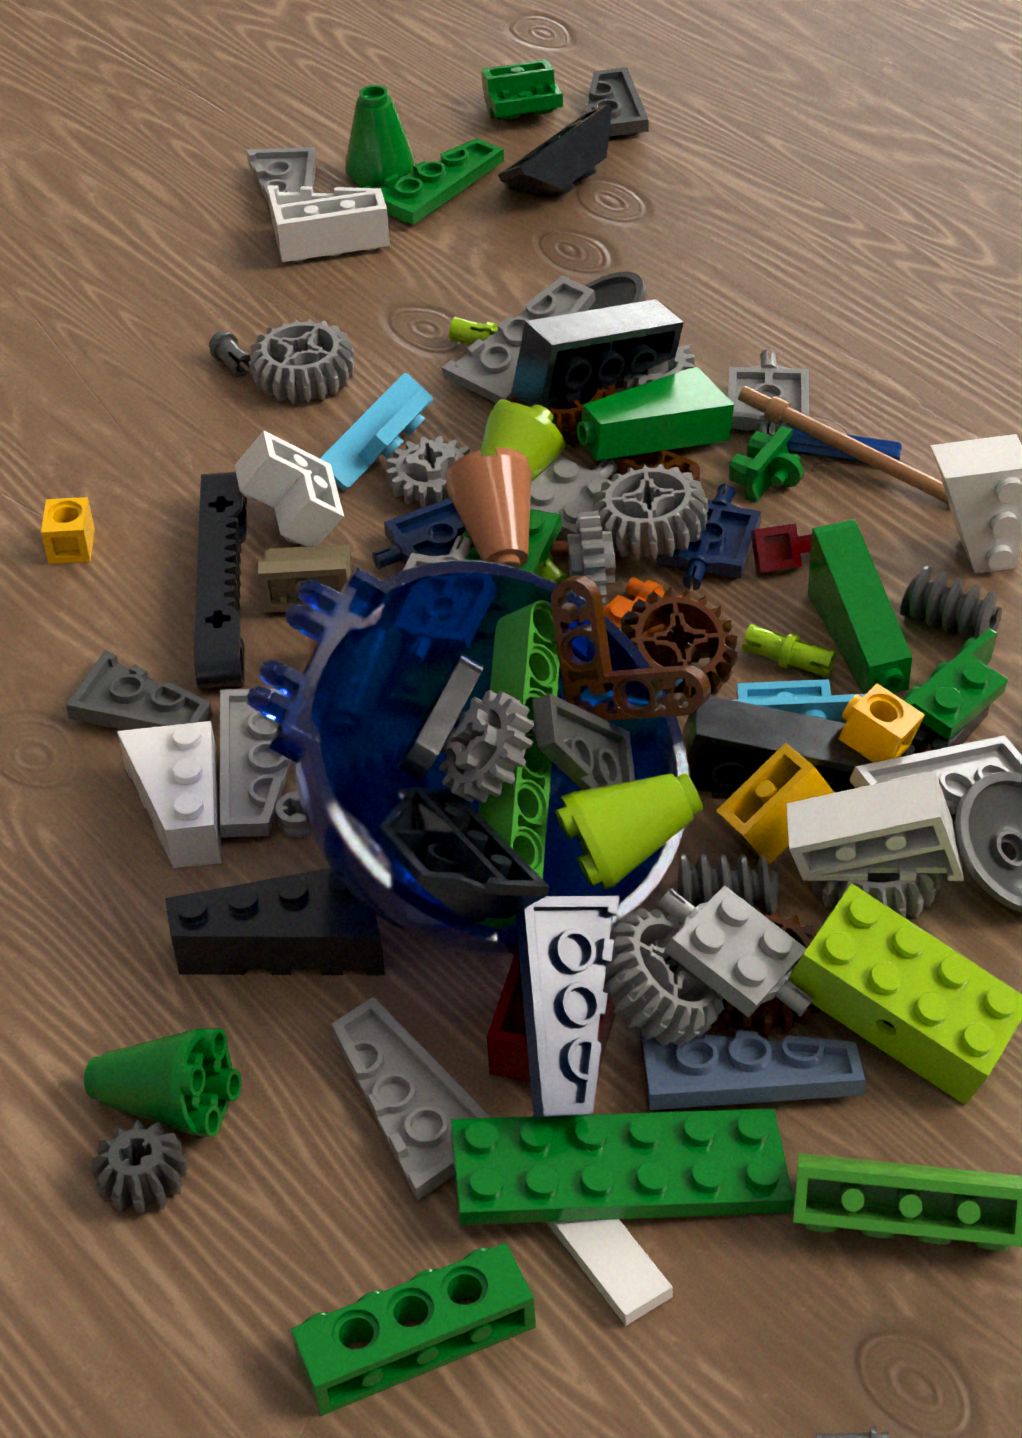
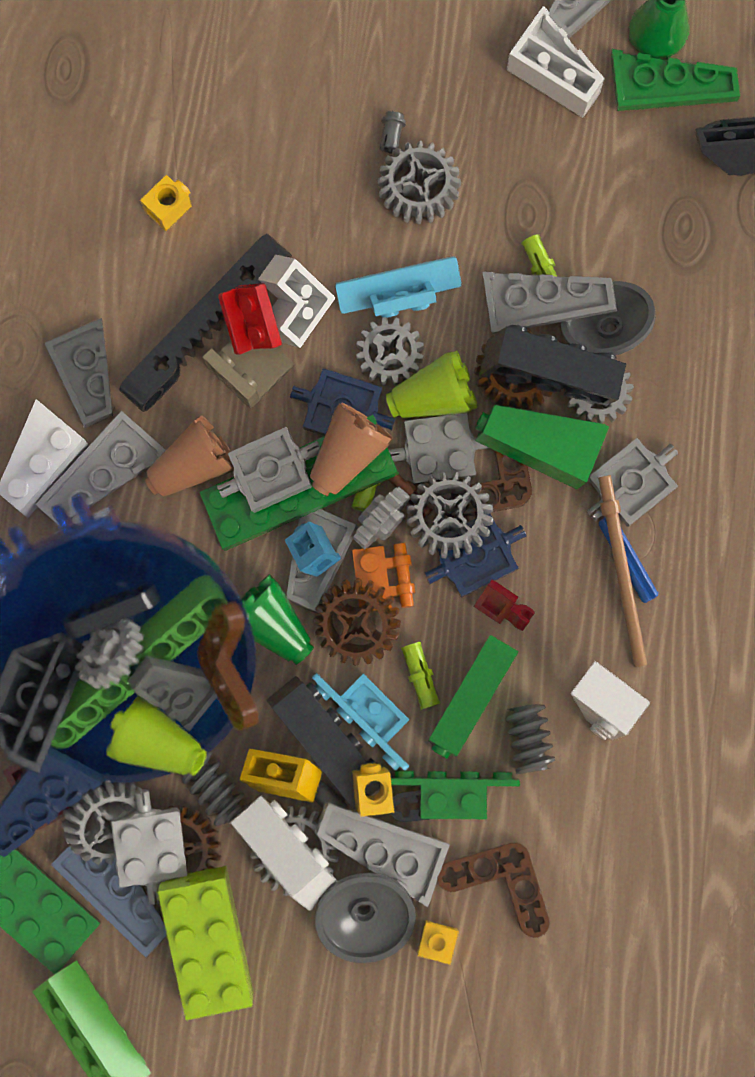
camera: 45 degrees right, 35 degrees up
(270, 516) = (249, 318): none -> red bracket
(766, 464) = (553, 535): green hips -> none

